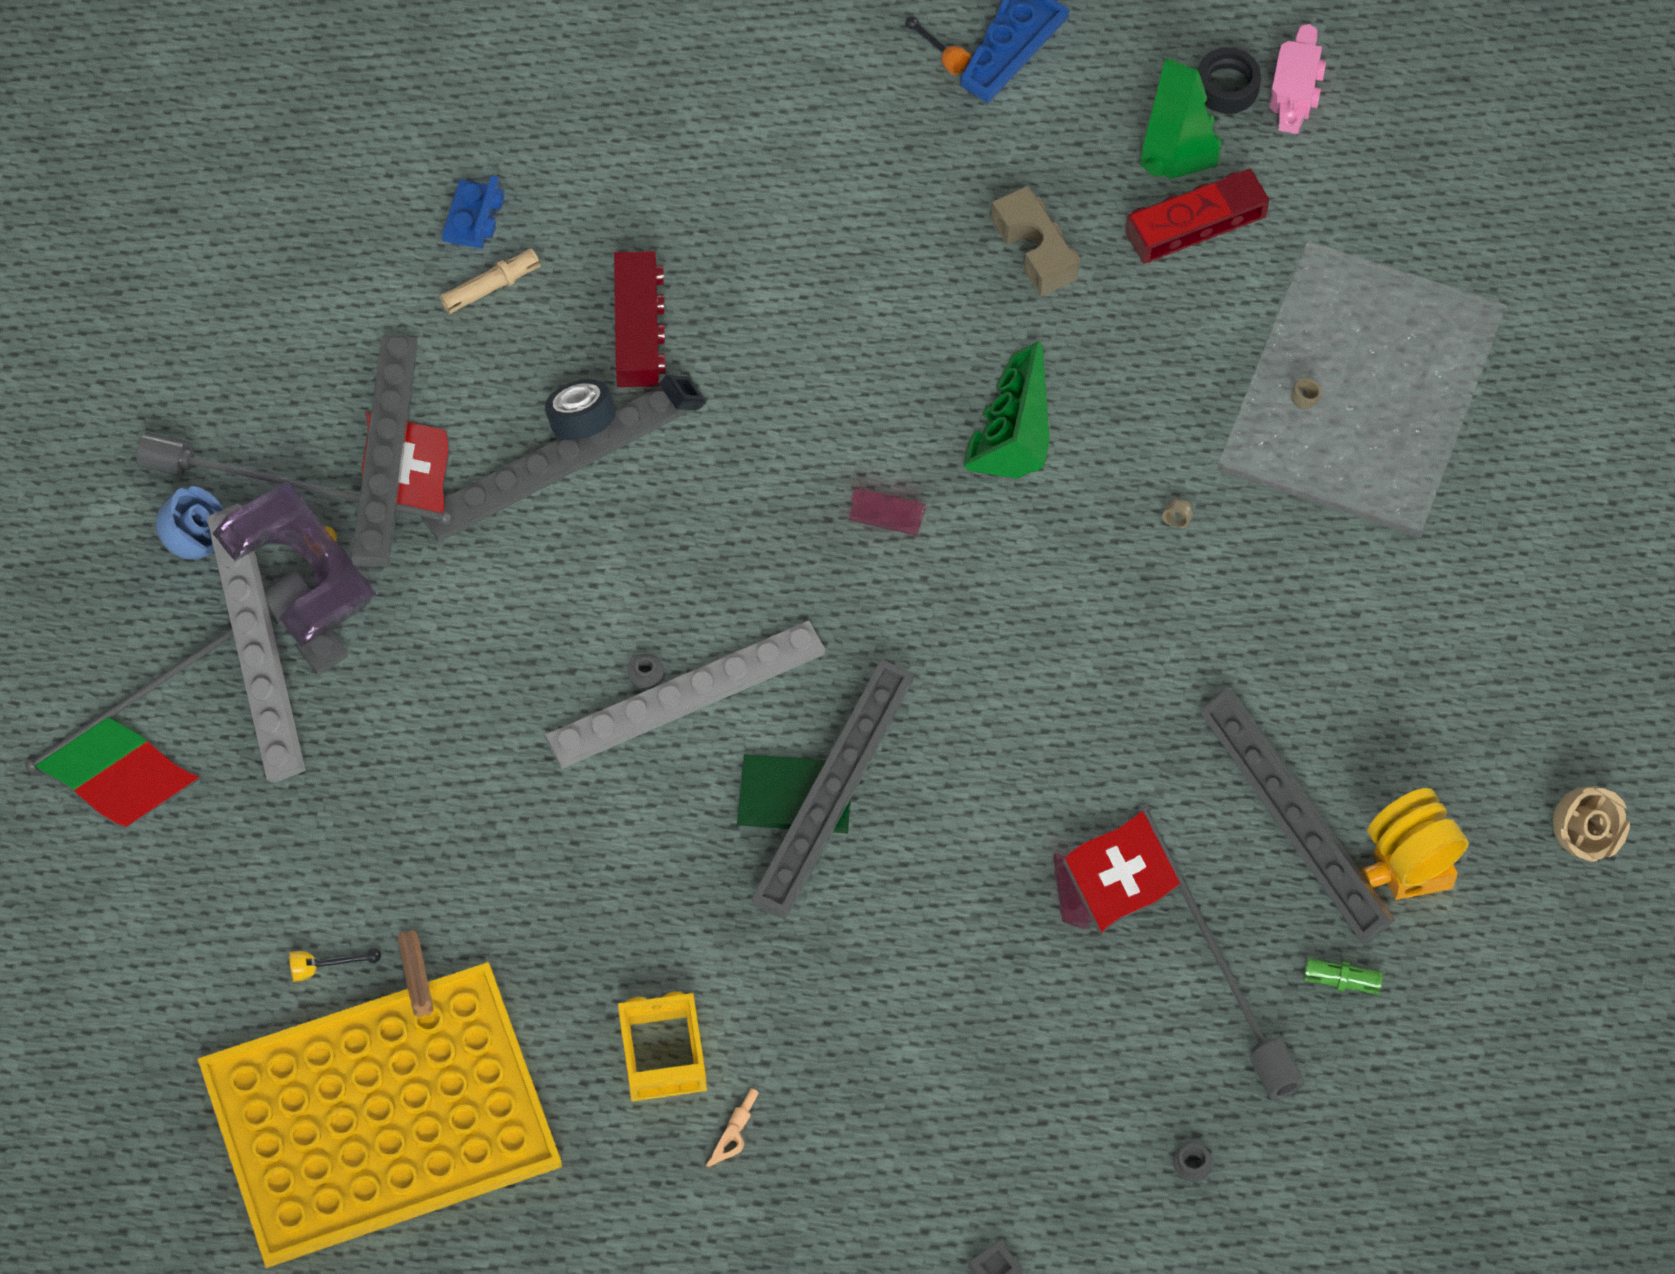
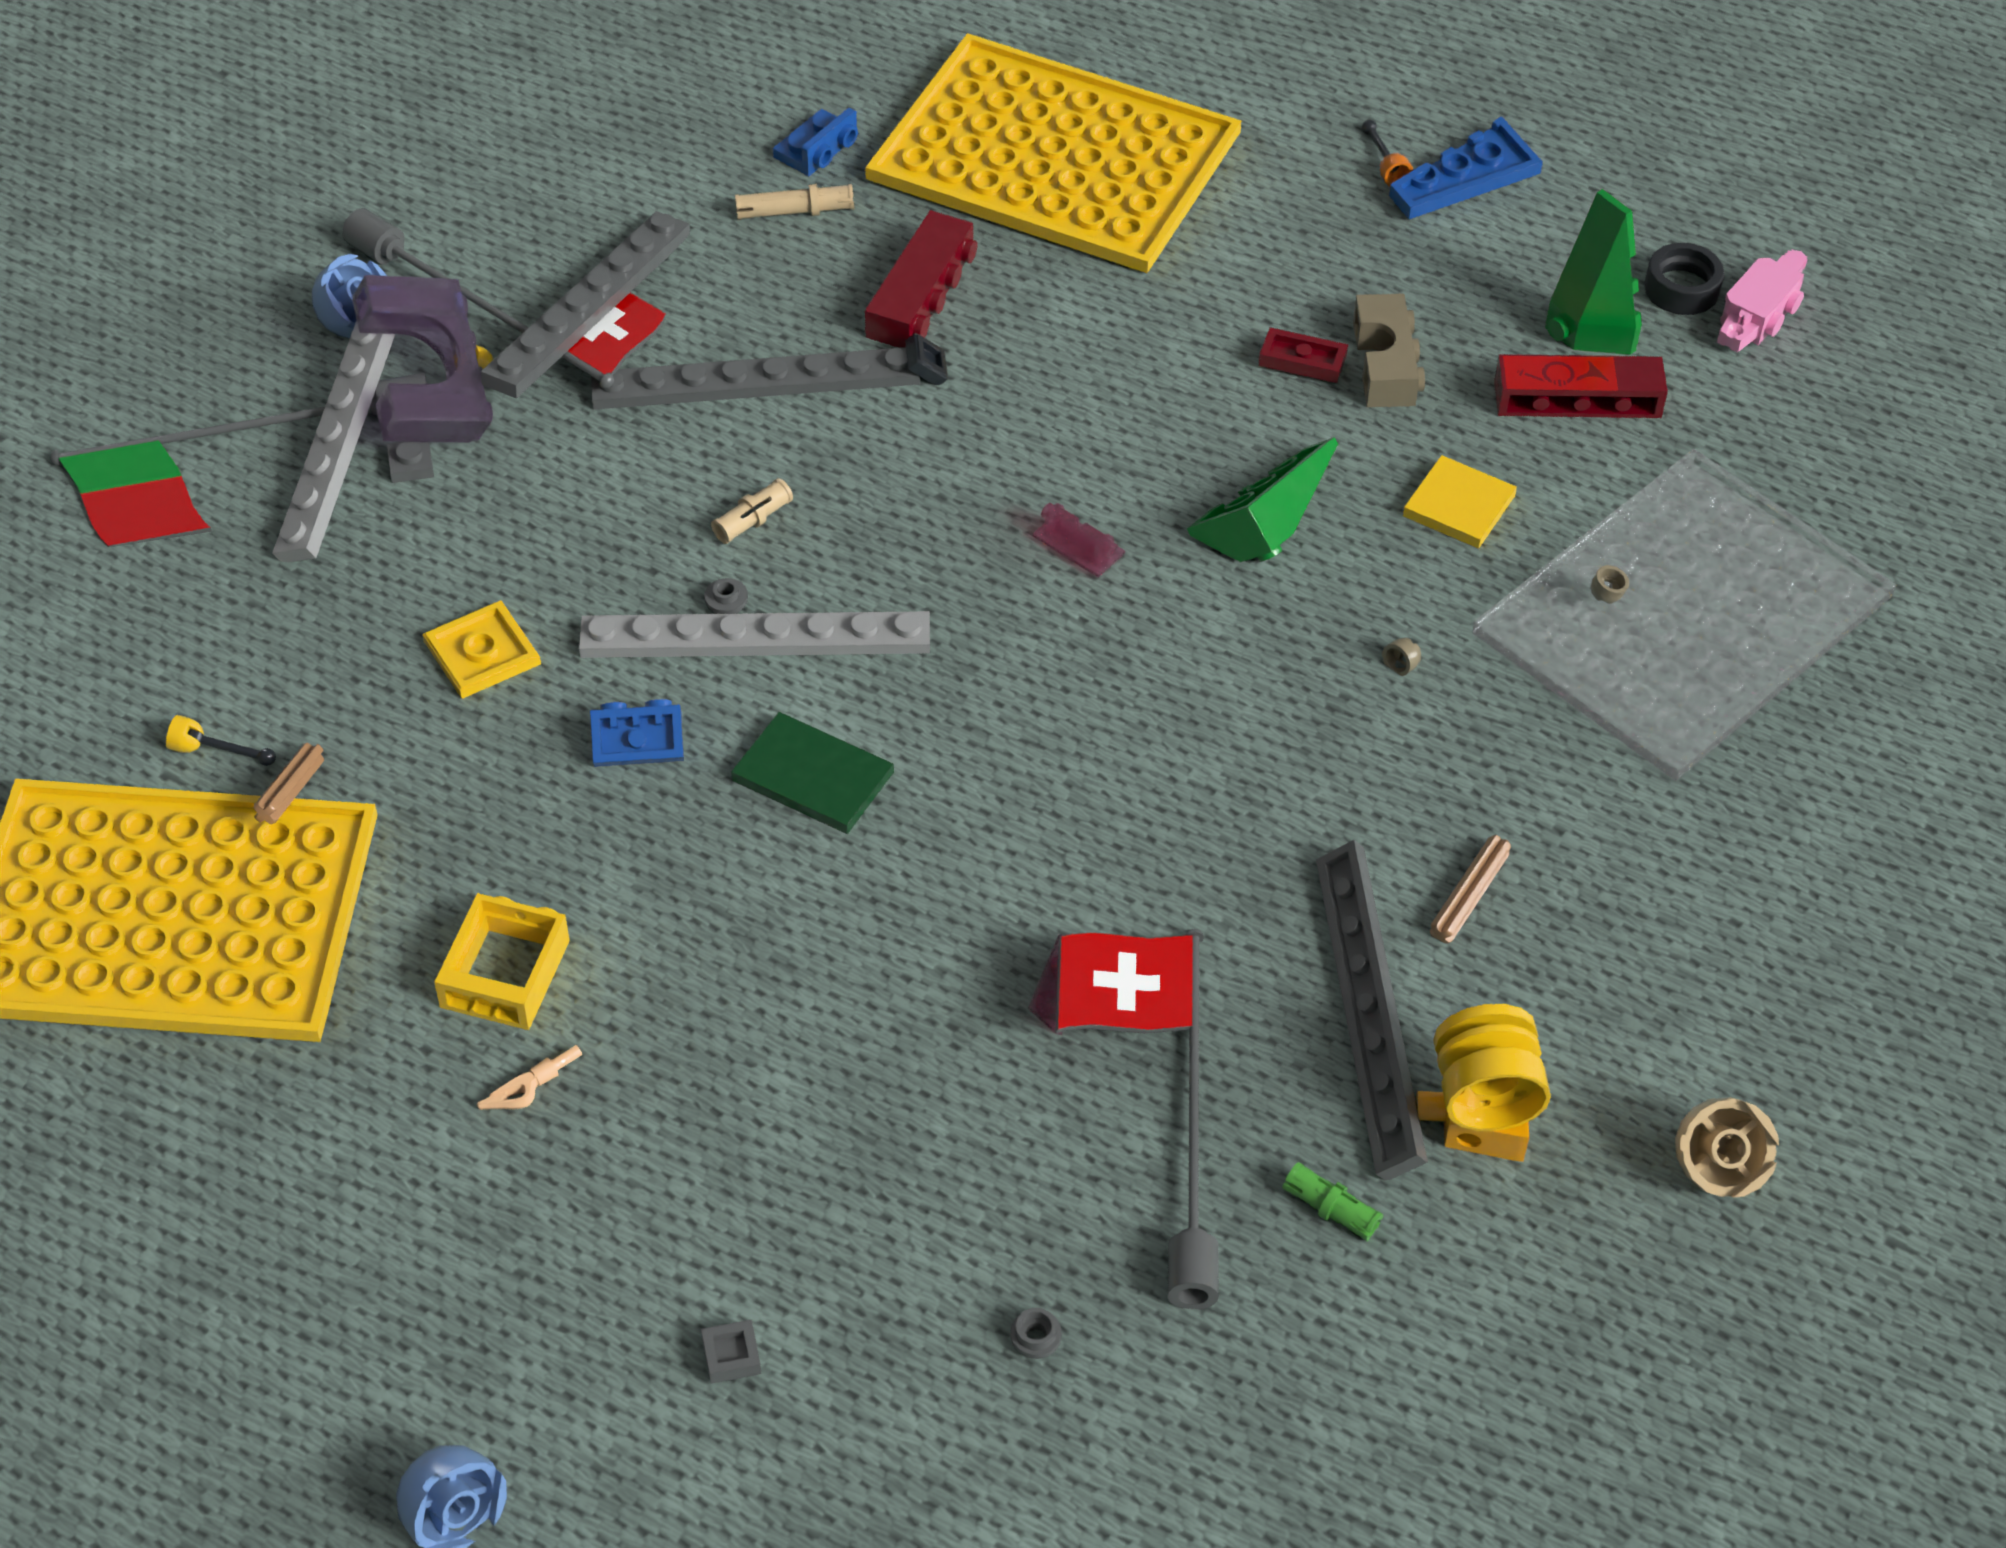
camera: 25 degrees right, 10 degrees down
(482, 794) = (481, 649): none -> yellow tile
(580, 409) = (808, 334): black wheel -> none
(622, 587) = (771, 497): none -> tan pin
(650, 818) = (637, 733): none -> blue bracket
(673, 147) = (1055, 152): none -> yellow plate
(832, 790) = (847, 777): dark grey plate -> none
(972, 269) = (1303, 355): none -> dark red plate
(1153, 356) = (1459, 501): none -> yellow tile
(1319, 689) = (1470, 889): none -> medium nougat axle

